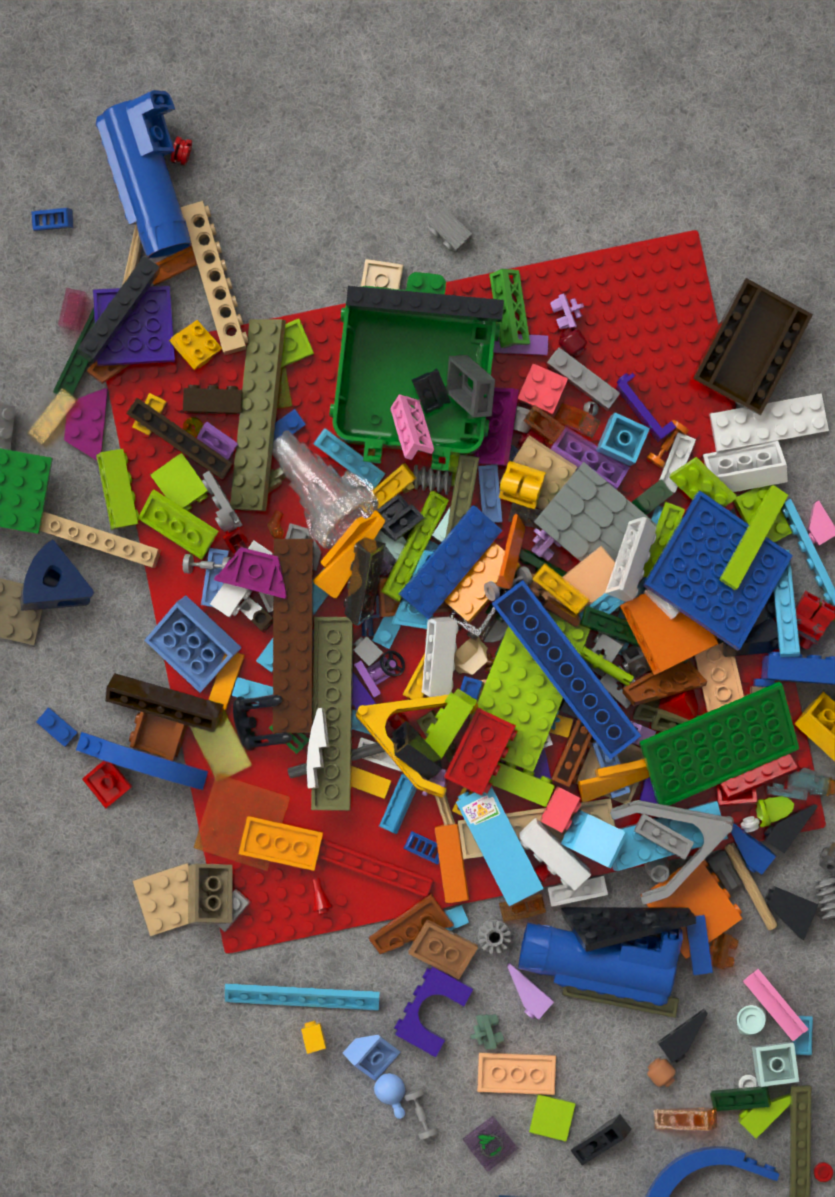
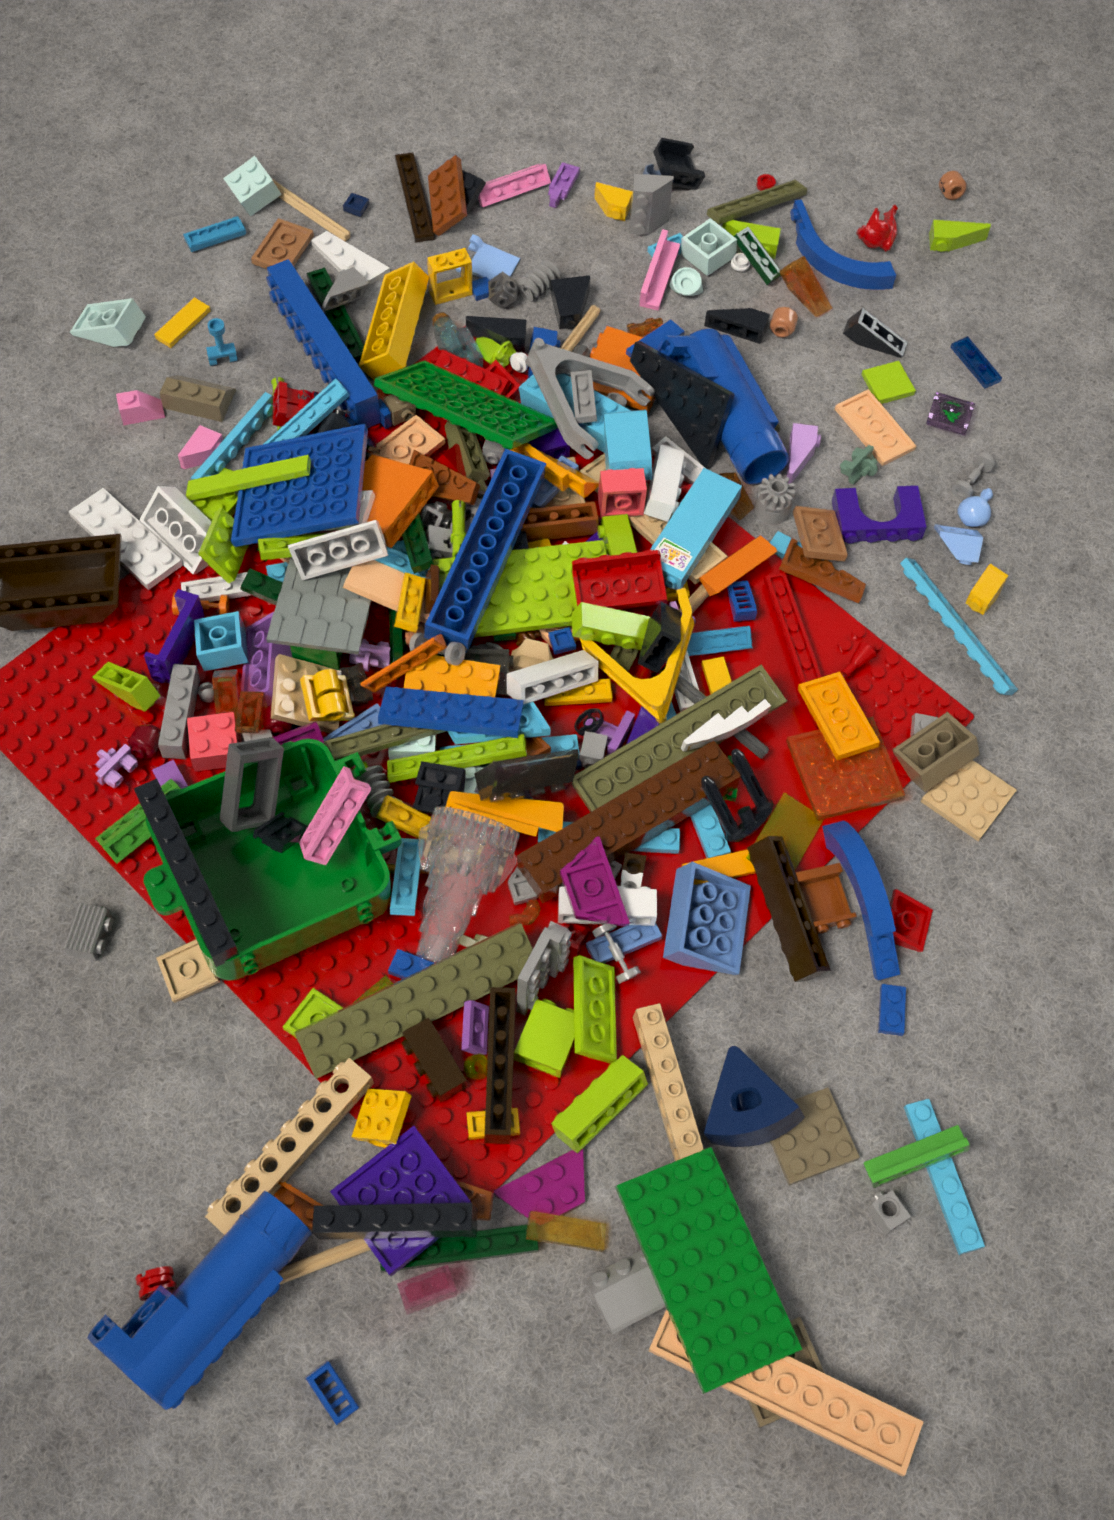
camera: 125 degrees left, 25 degrees down
(629, 353) = (127, 685): none -> lime slope

